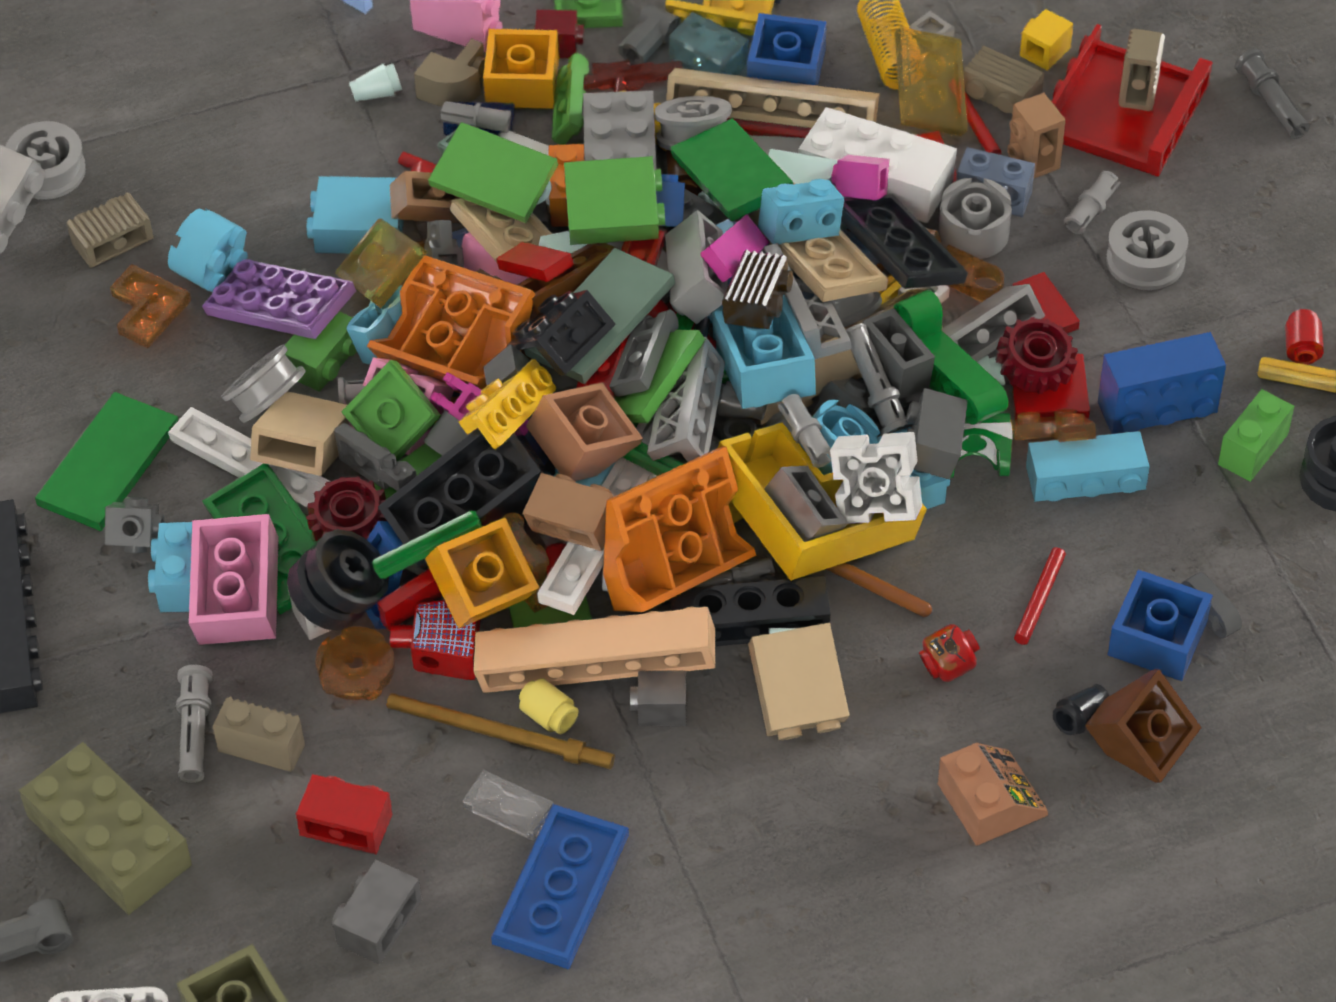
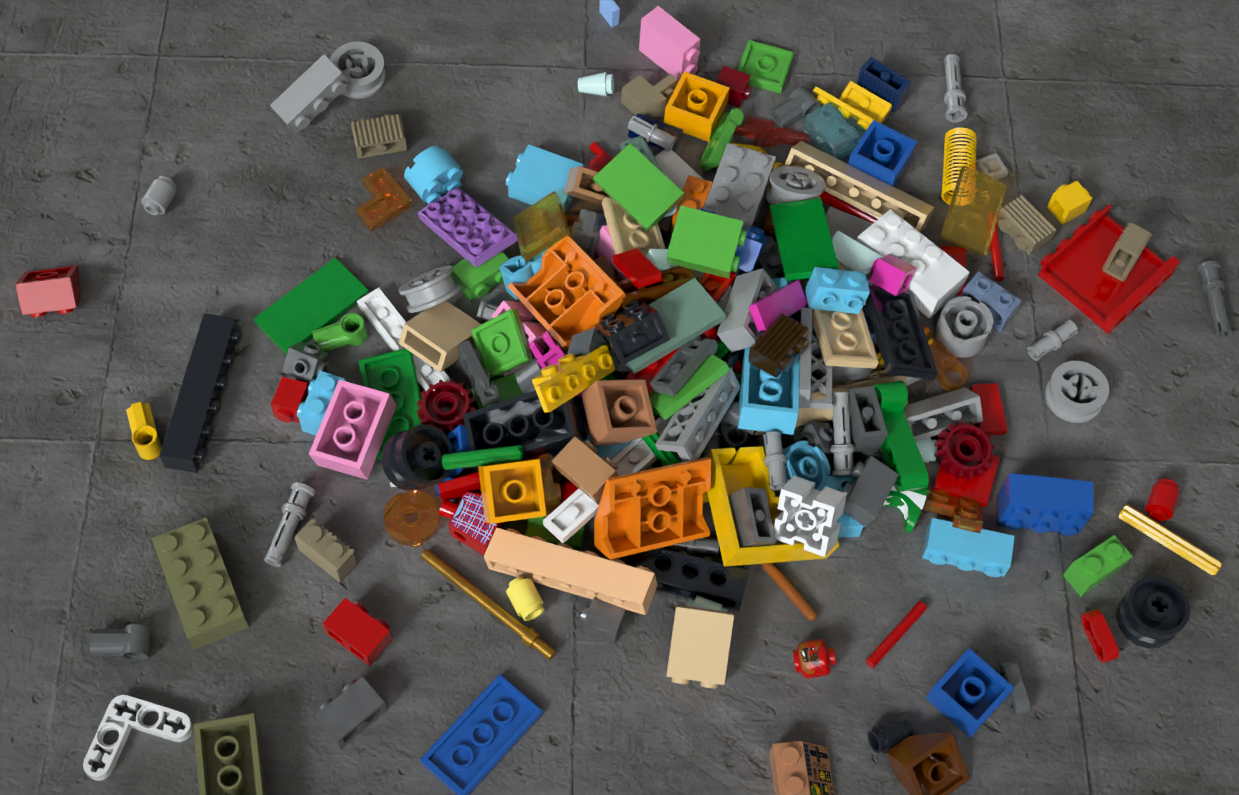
camera: 15 degrees right, 10 degrees up
(129, 576) = (288, 398): none -> red brick
(165, 476) = (338, 334): none -> bright green piece
(507, 805) = (471, 661): clear plate -> none
(1037, 134) = (1031, 277): medium nougat brick -> none
(1292, 513) = (1099, 636): none -> red beam

